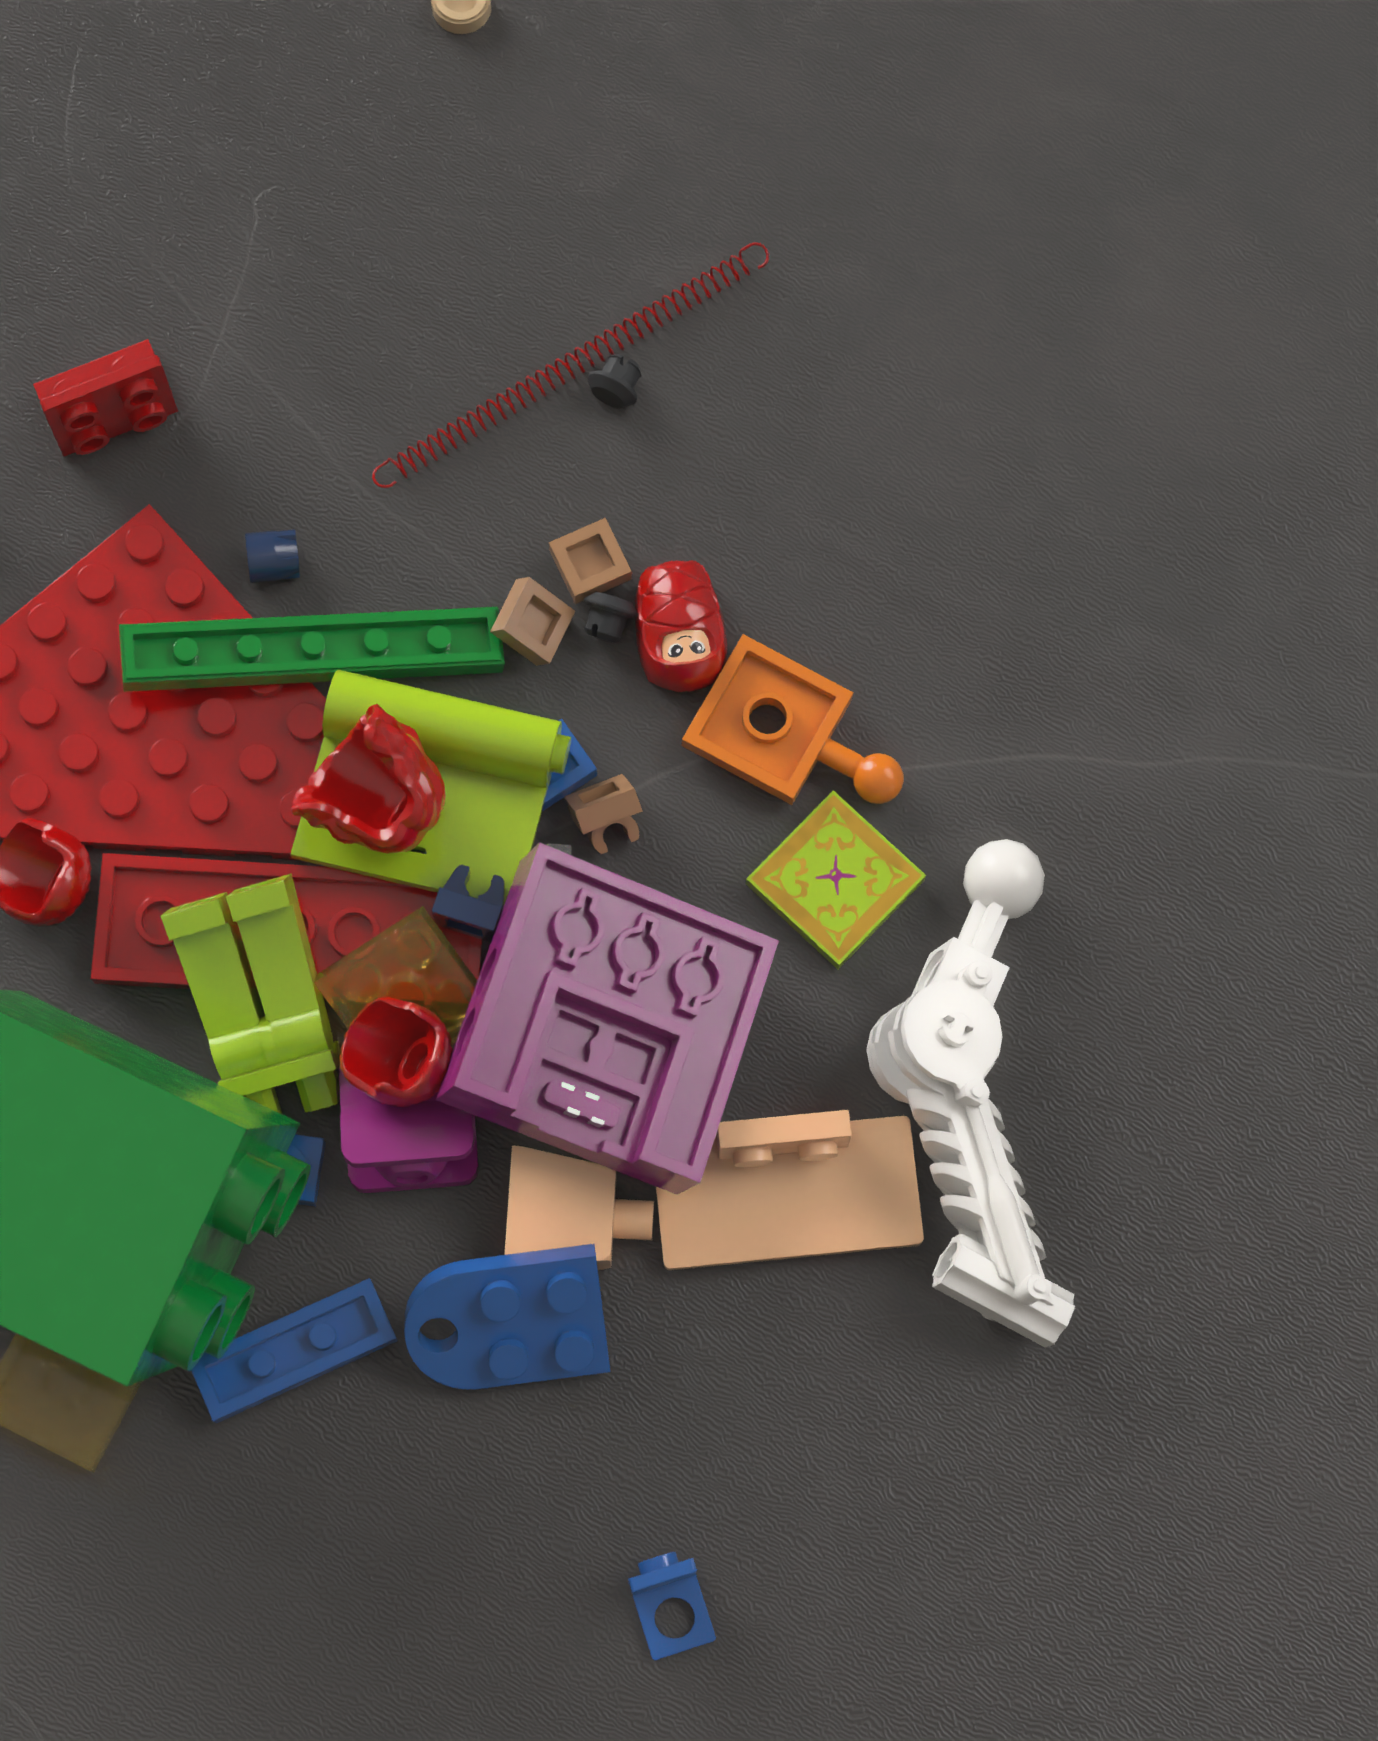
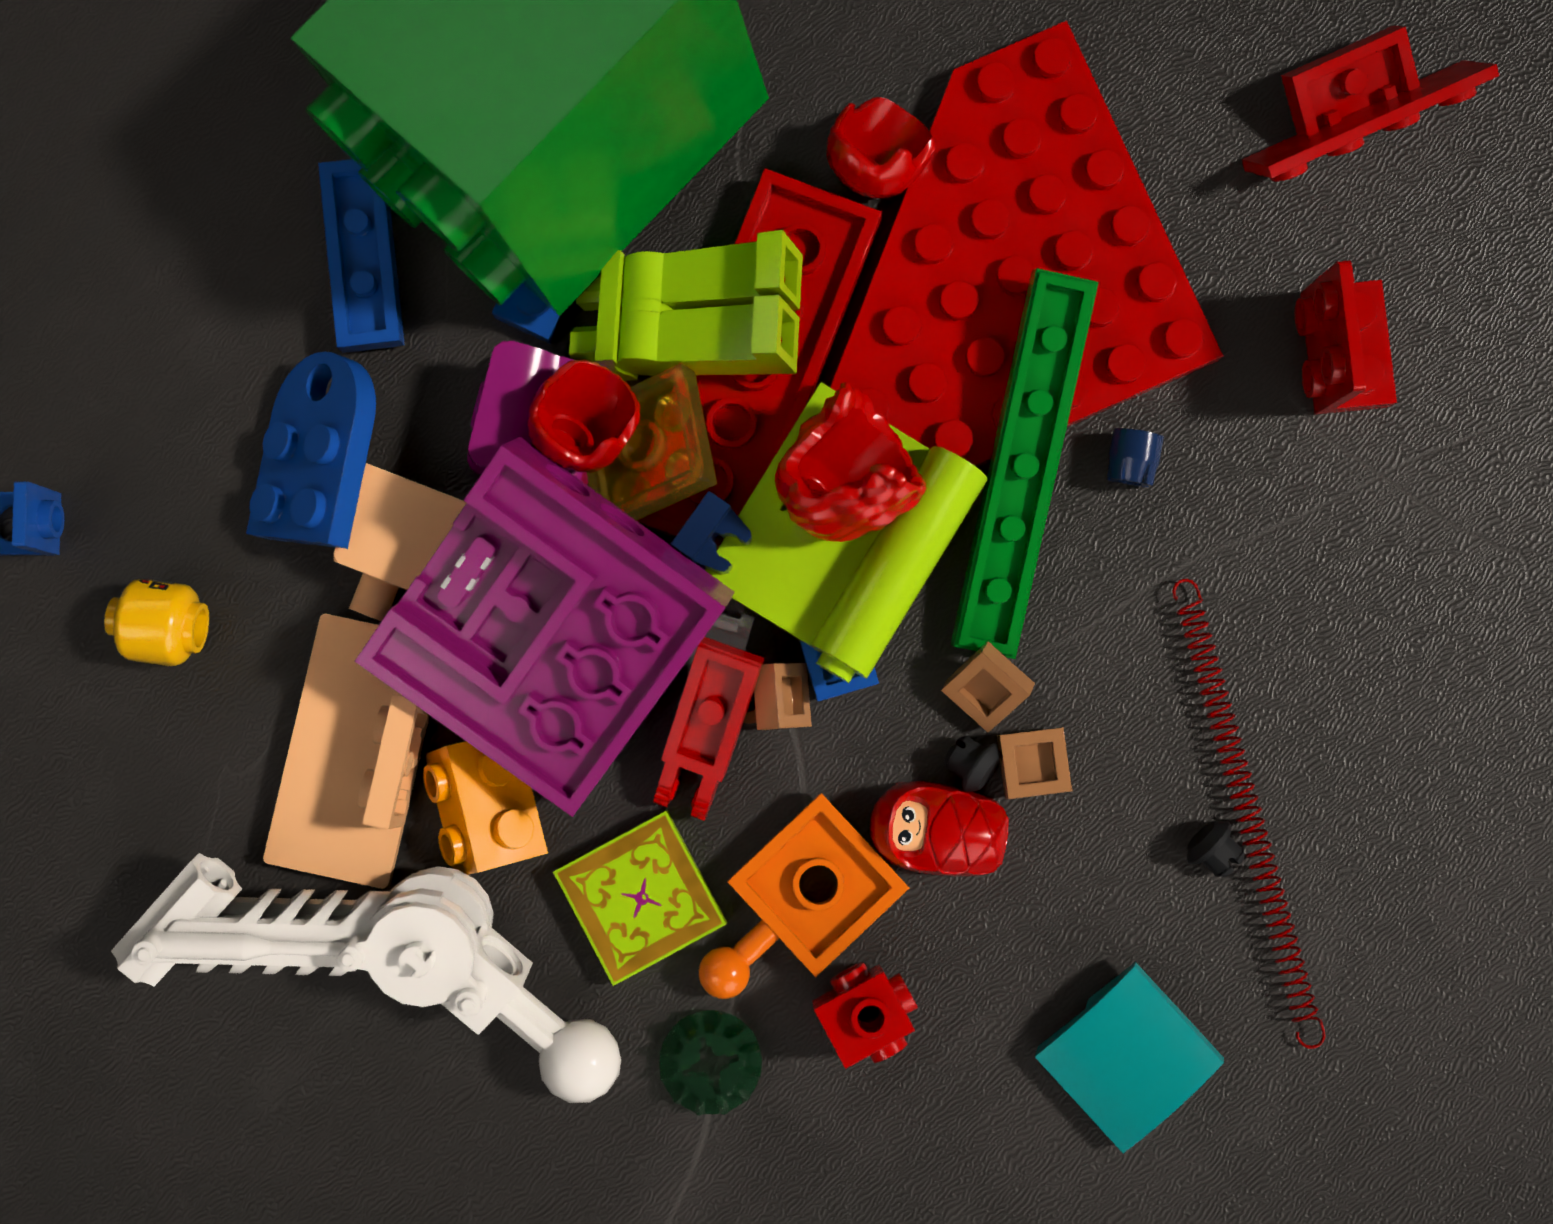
camera: 110 degrees right, 10 degrees up
(657, 855) = (708, 721): none -> red hinge
(726, 1421) = (157, 622): none -> yellow head
(802, 1051) = (483, 810): none -> light orange bracket
(830, 401) = (1129, 1057): none -> teal slope
(870, 636) = (859, 1037): none -> red brick
(963, 795) = (726, 1036): none -> clear green gear

